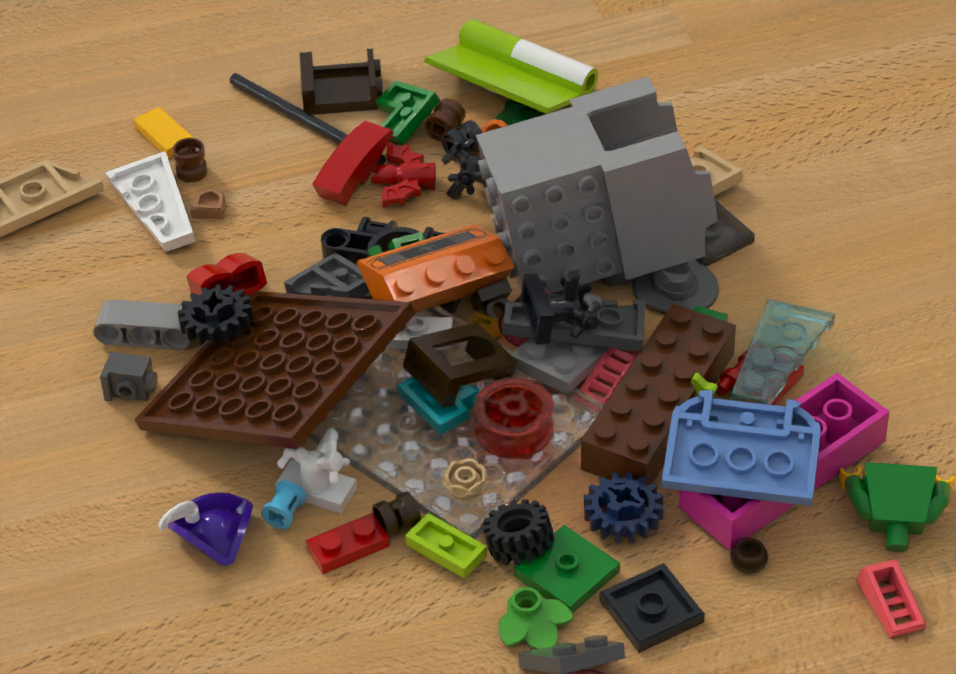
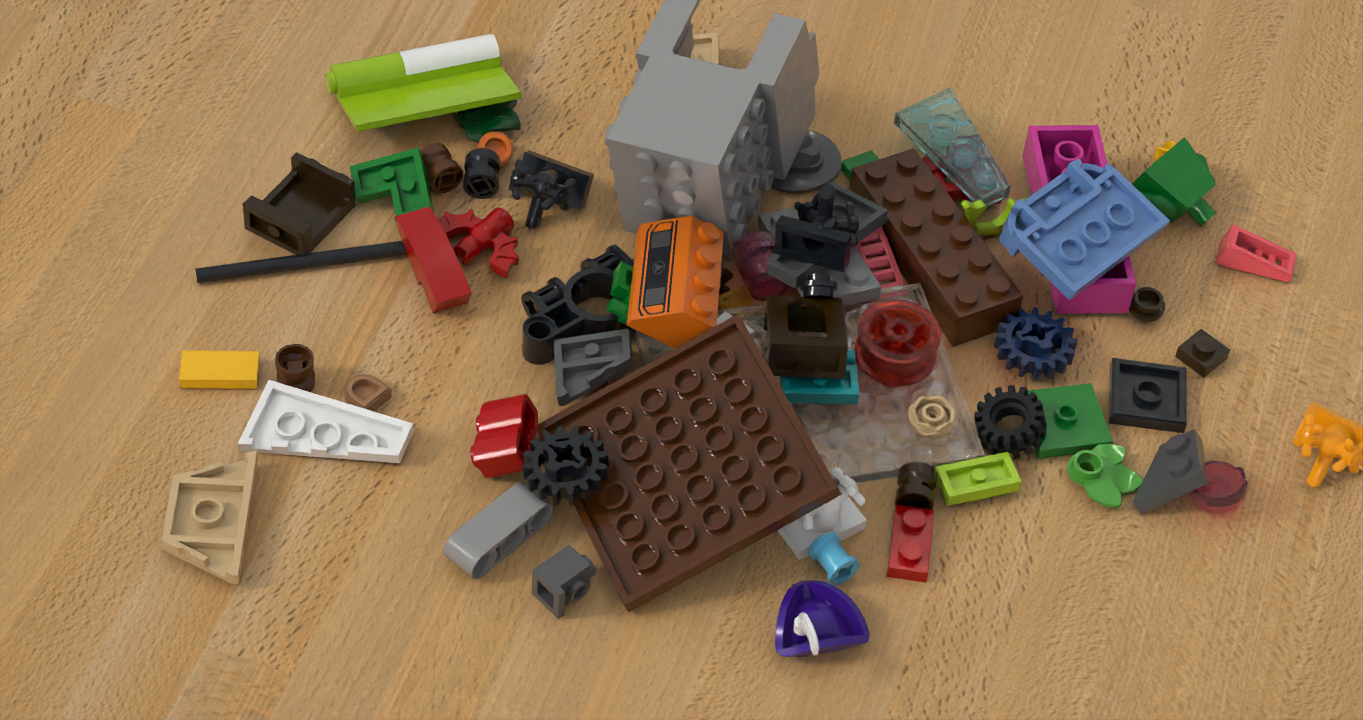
camera: 60 degrees left, 5 degrees up
(513, 343) = (818, 286): none -> black plate
(737, 619) = (1202, 353): none -> dark brown plate

